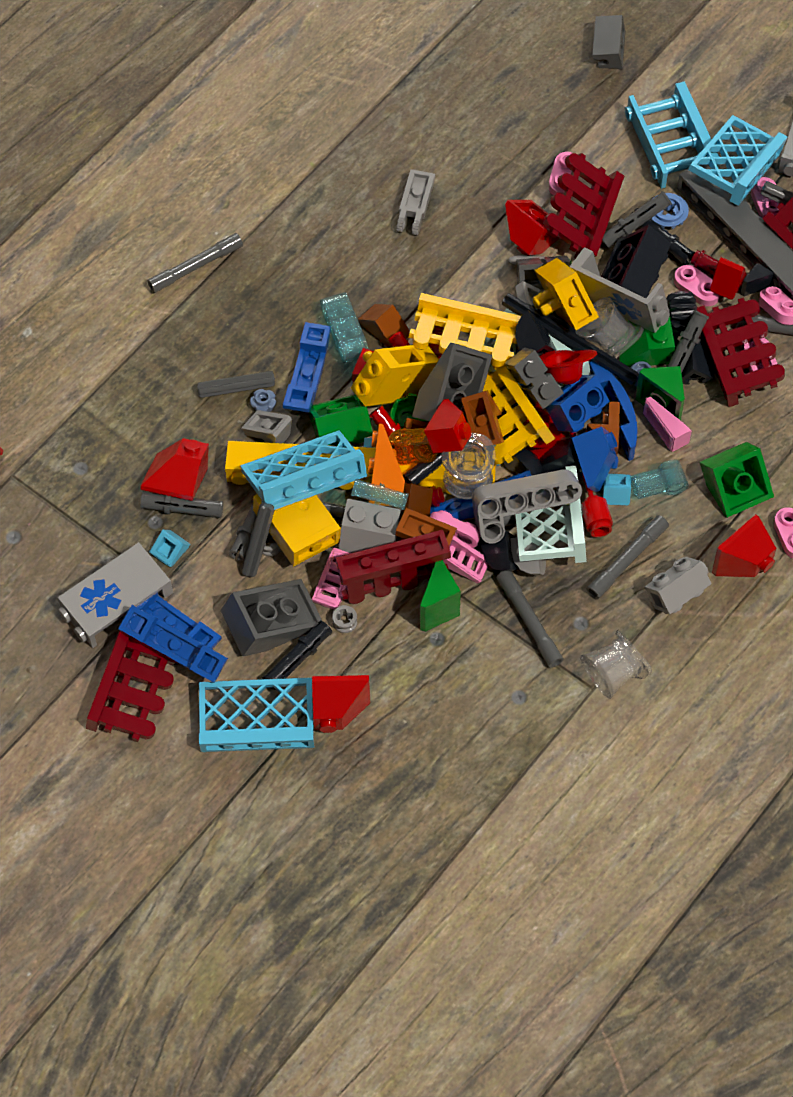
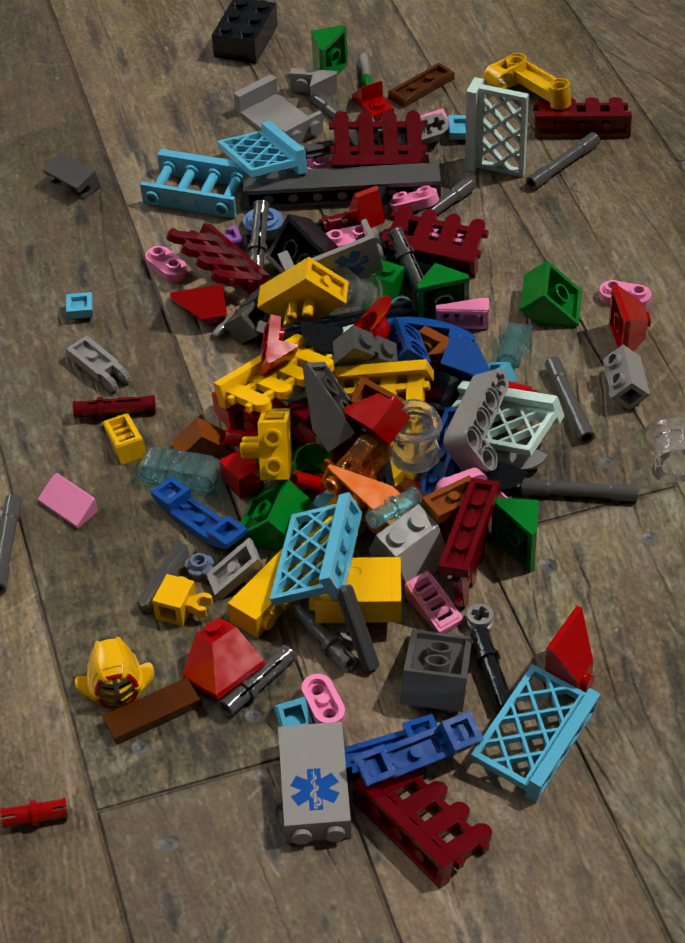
camera: 55 degrees left, 15 degrees down
(112, 454) = (151, 710): none -> reddish brown tile
(124, 408) = (112, 666): none -> yellow piece
(189, 560) = (324, 704): none -> bright pink plate
(217, 407) = (178, 599): none -> yellow brick
(262, 275) = (68, 501): none -> bright pink slope
(348, 283) = (126, 440): none -> yellow slope
(371, 235) = (107, 407): none -> dark red pin
(467, 147) = (79, 305): none -> medium azure plate
(475, 313) = (274, 350): none -> slope
(630, 201) = (234, 236): none -> medium lavender tile

